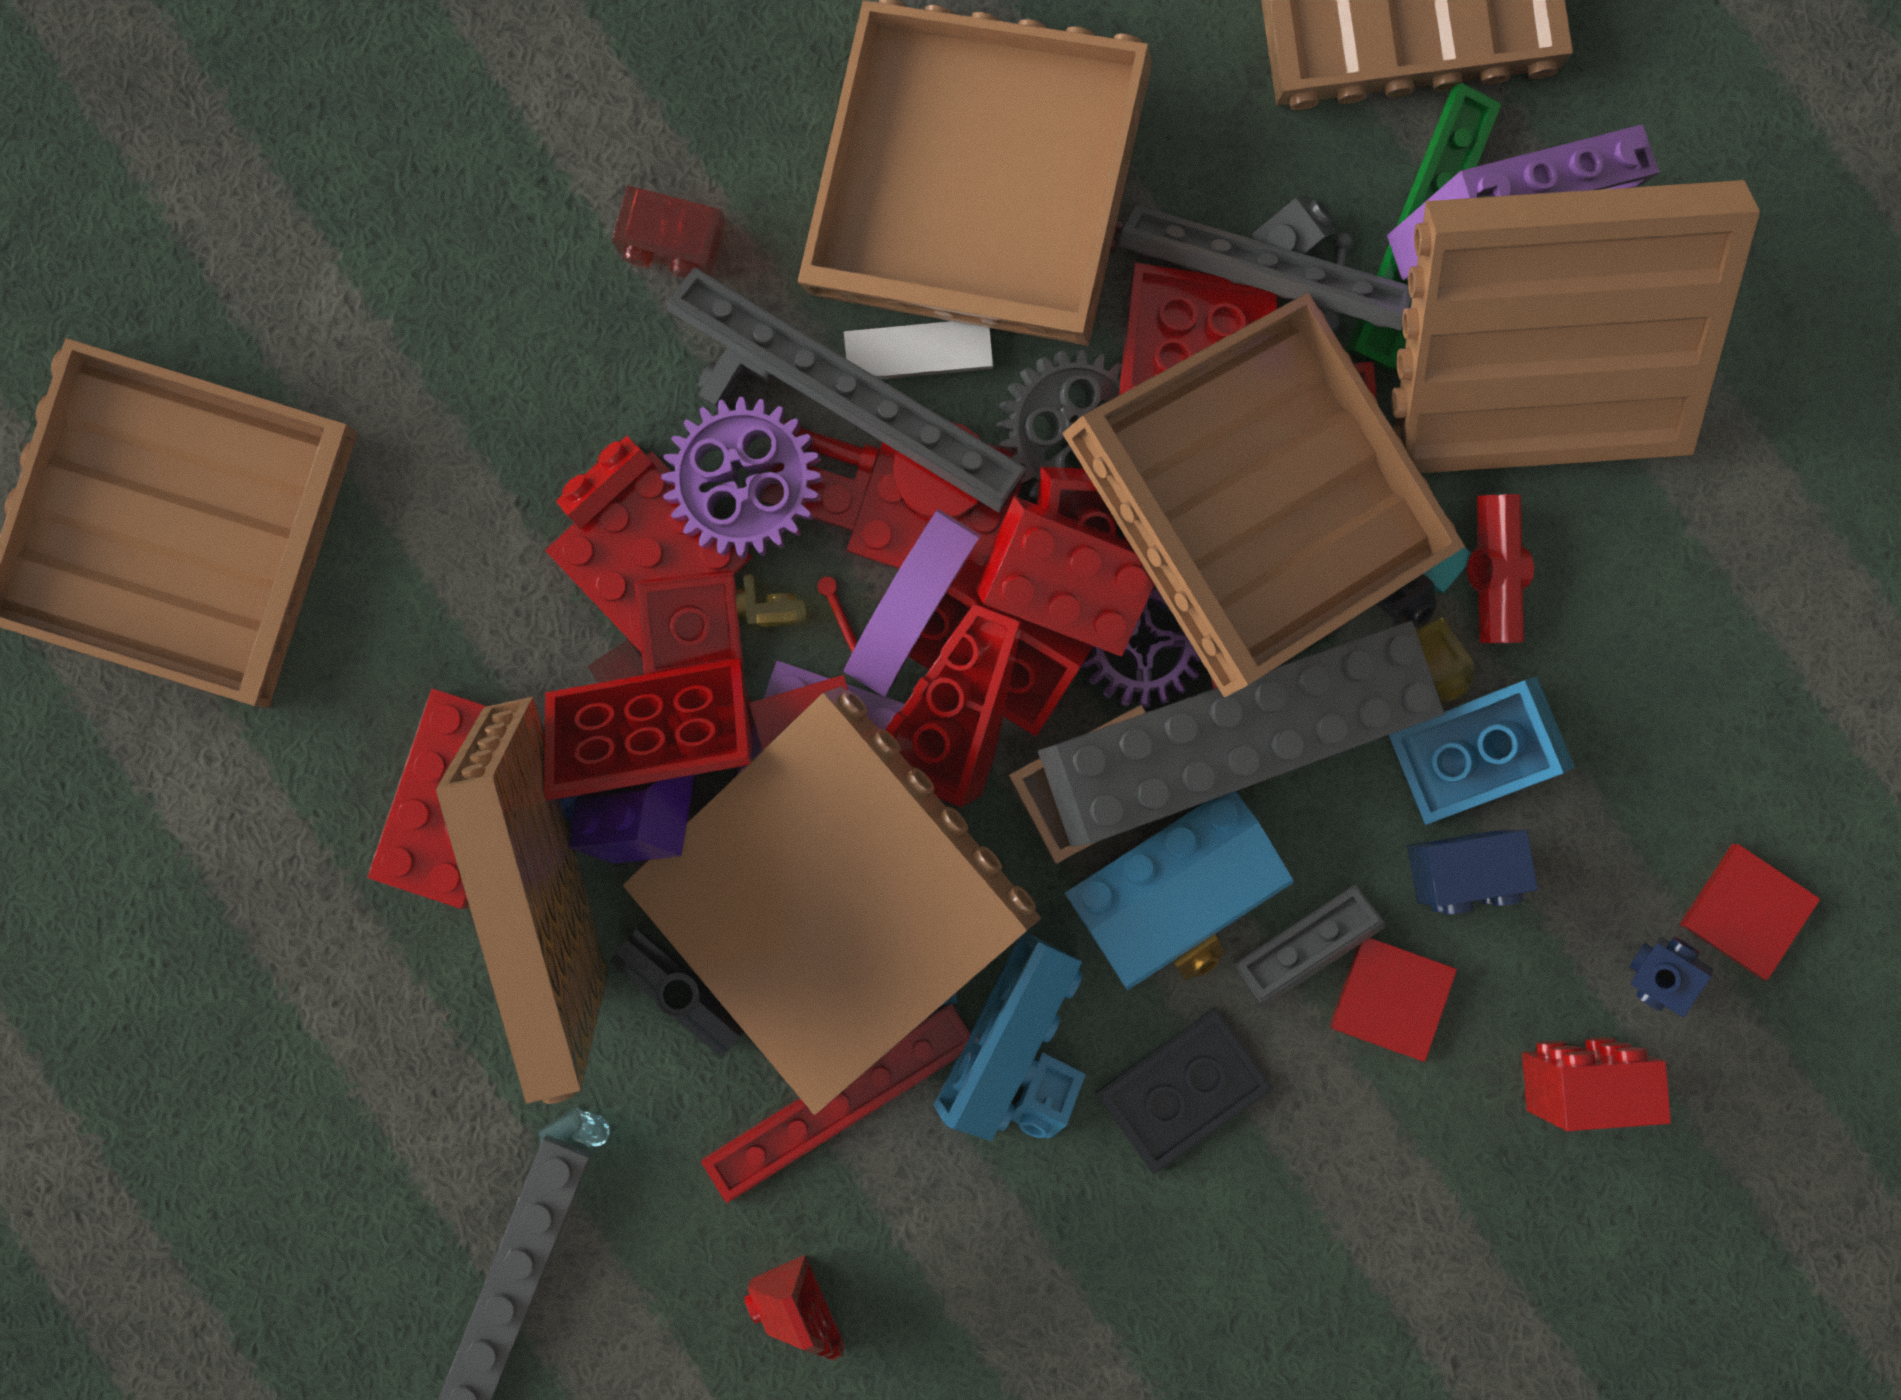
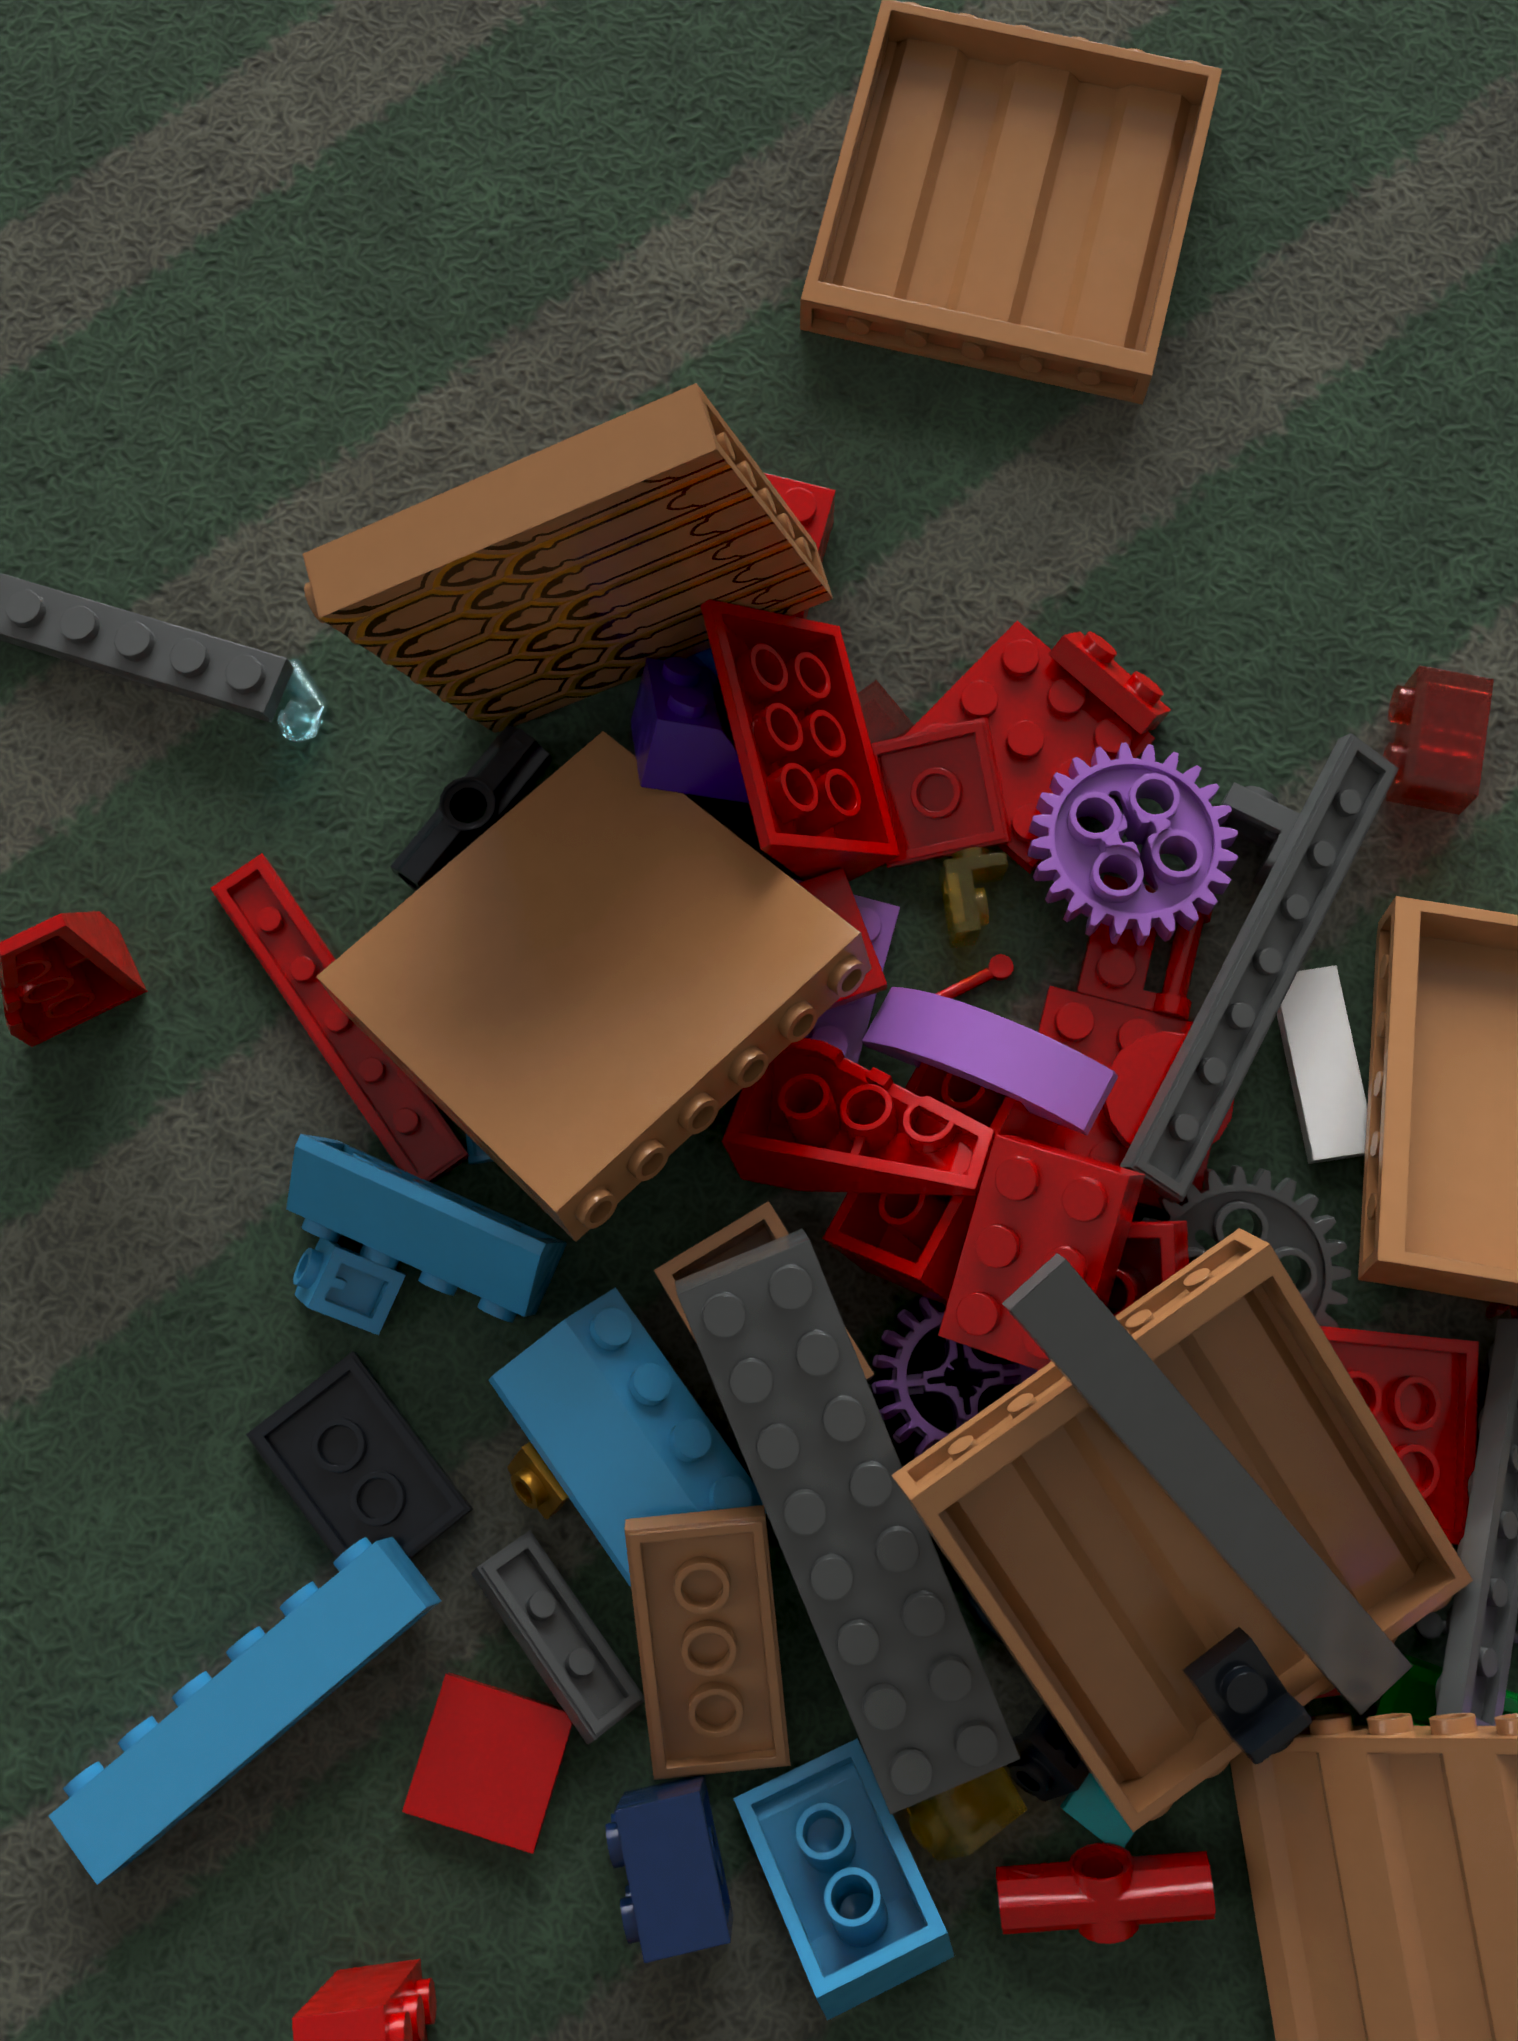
camera: 90 degrees right, 10 degrees down
(1240, 477) = (1206, 1482): none -> dark grey tile
(1321, 836) = (708, 1641): none -> medium nougat tile
(1349, 1172) = (243, 1708): none -> dark azure brick
(1382, 459) = (1247, 1697): none -> black bracket

